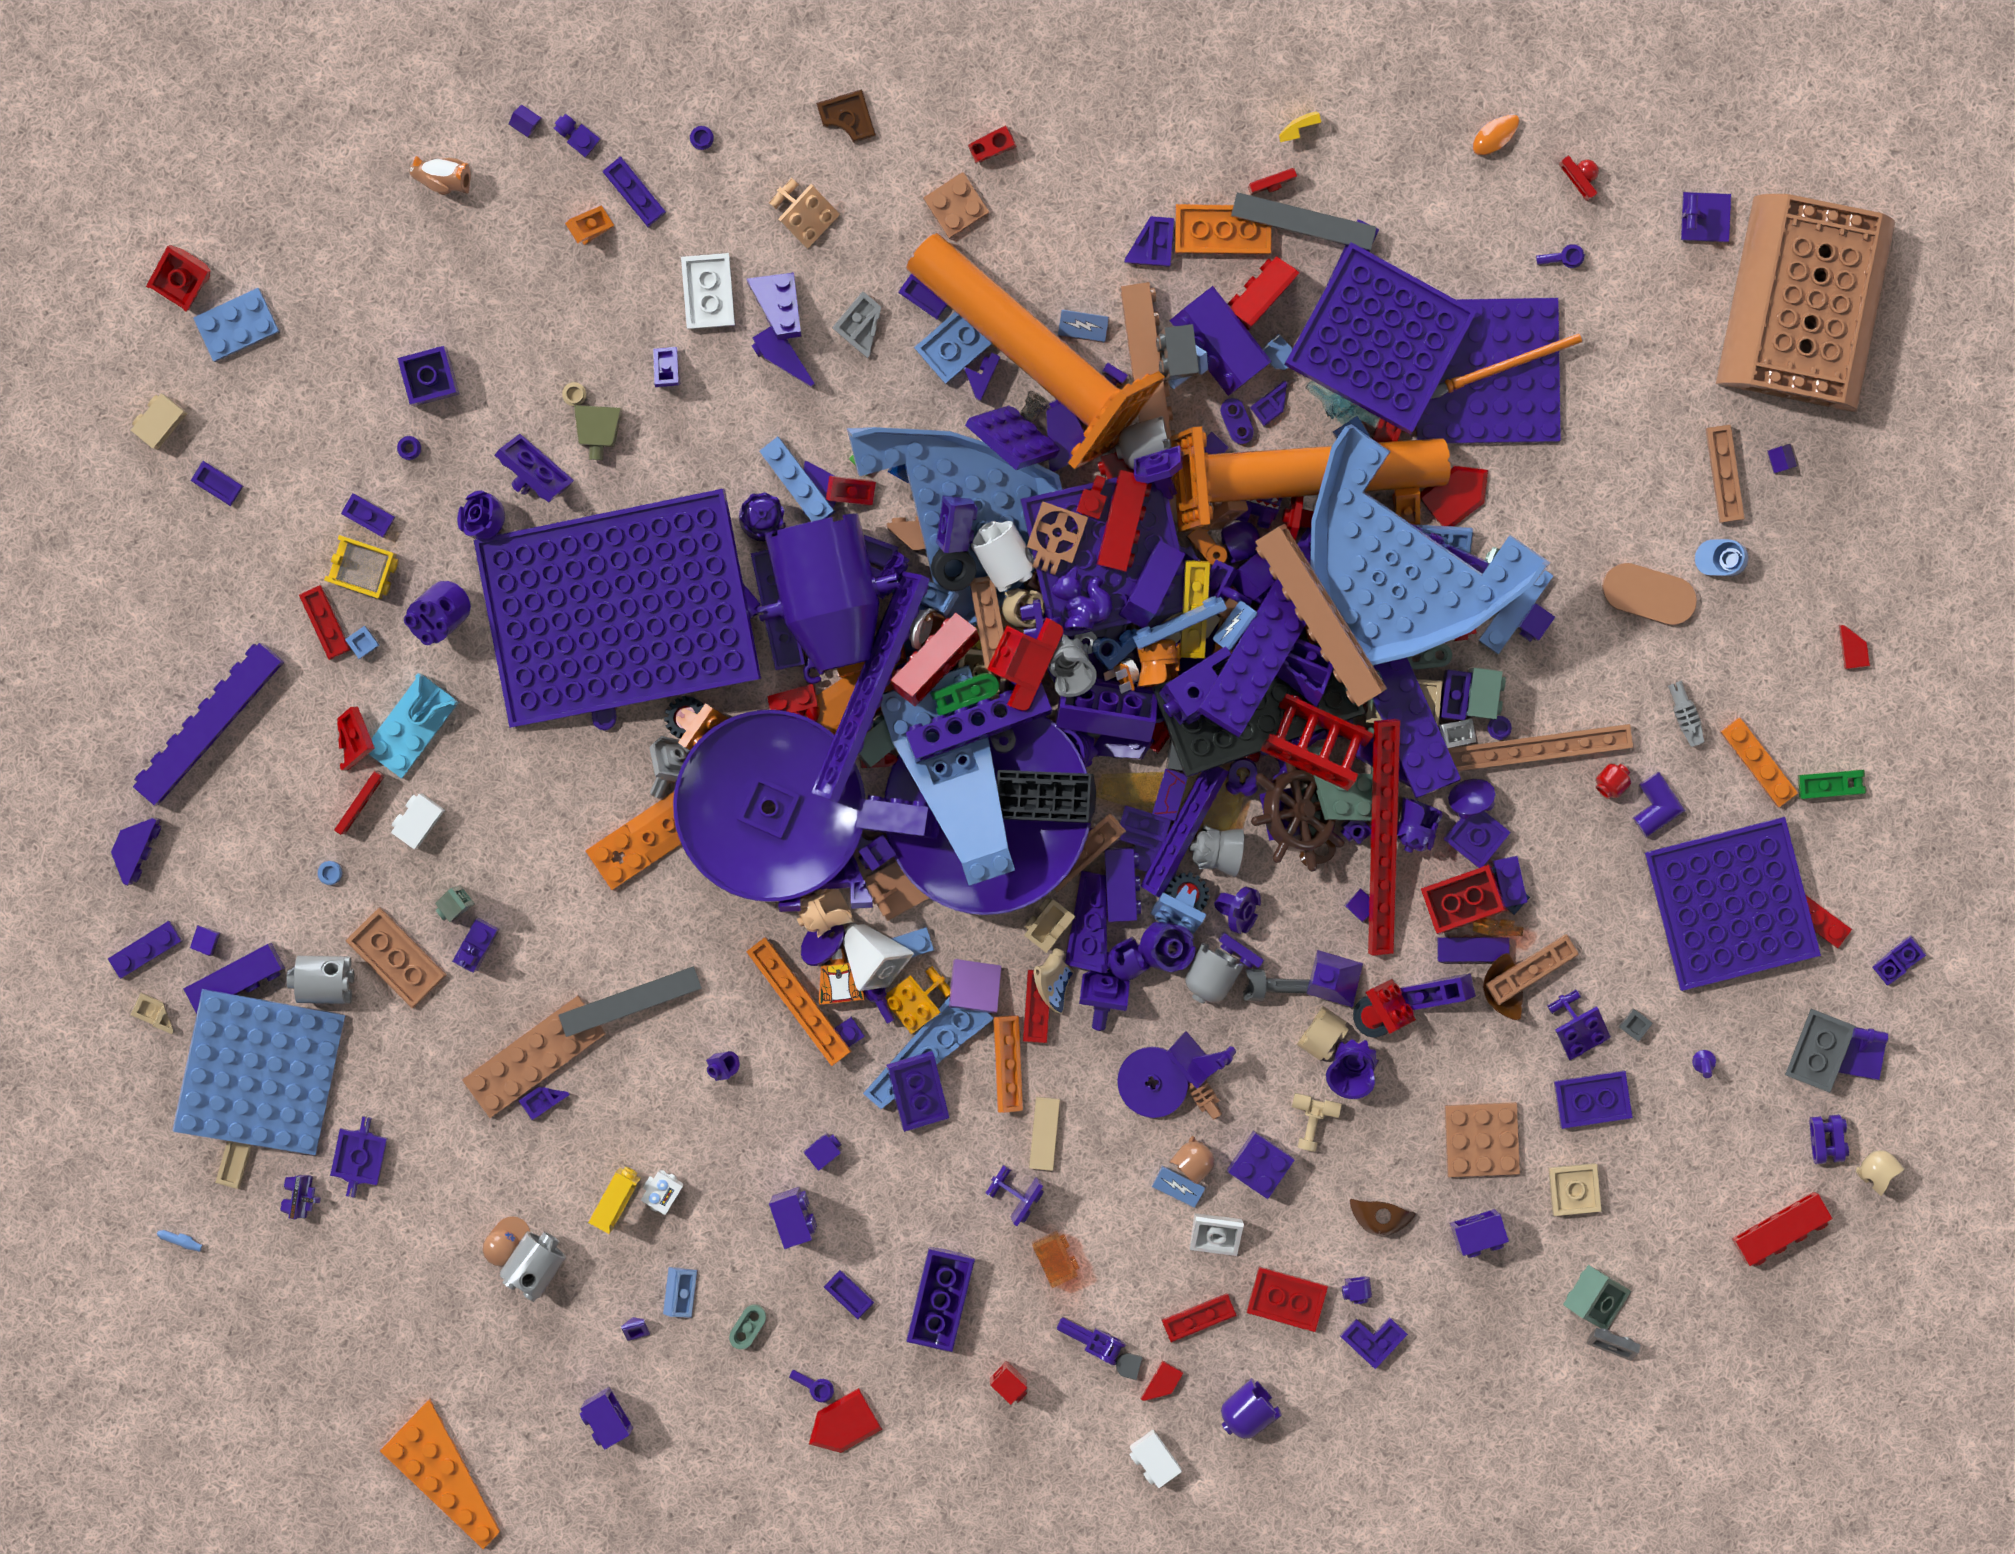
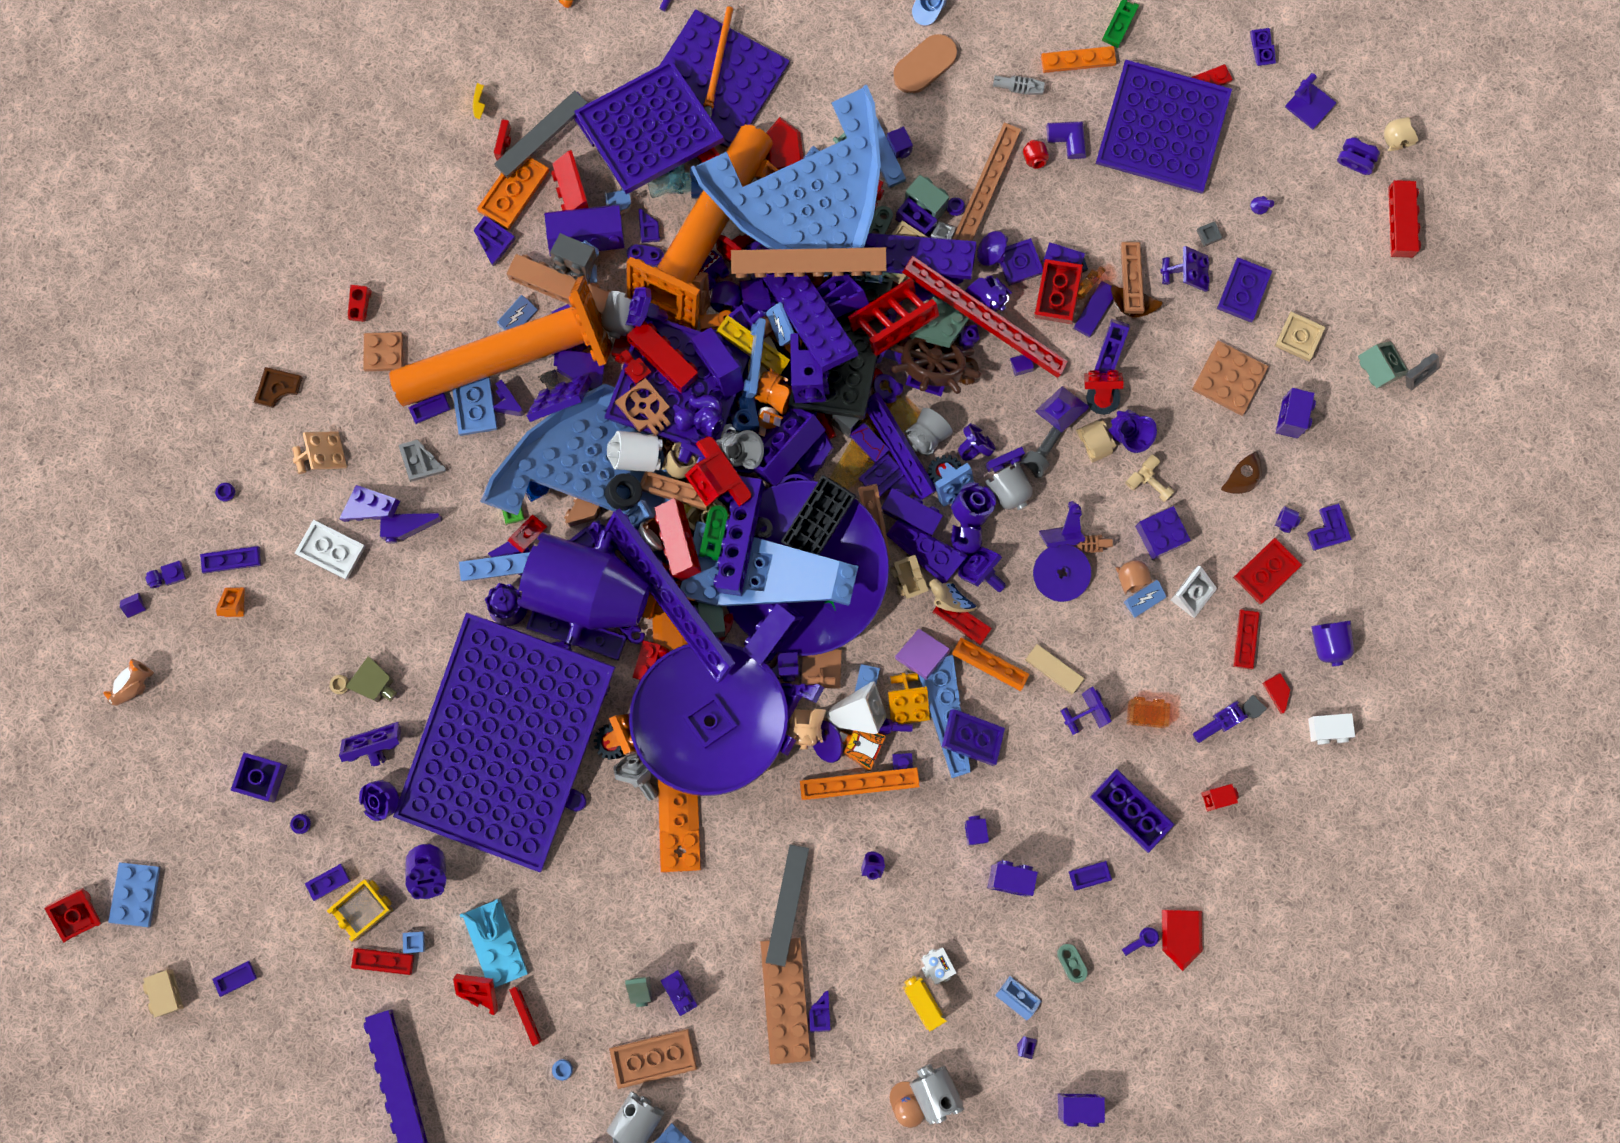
camera: 60 degrees left, 10 degrees down
(417, 820) = (564, 981): white brick -> none
(666, 367) = (363, 609): slope -> none
(955, 524) = (593, 469): dark purple slope -> none
(1820, 1050) = (1295, 126): dark grey plate -> none

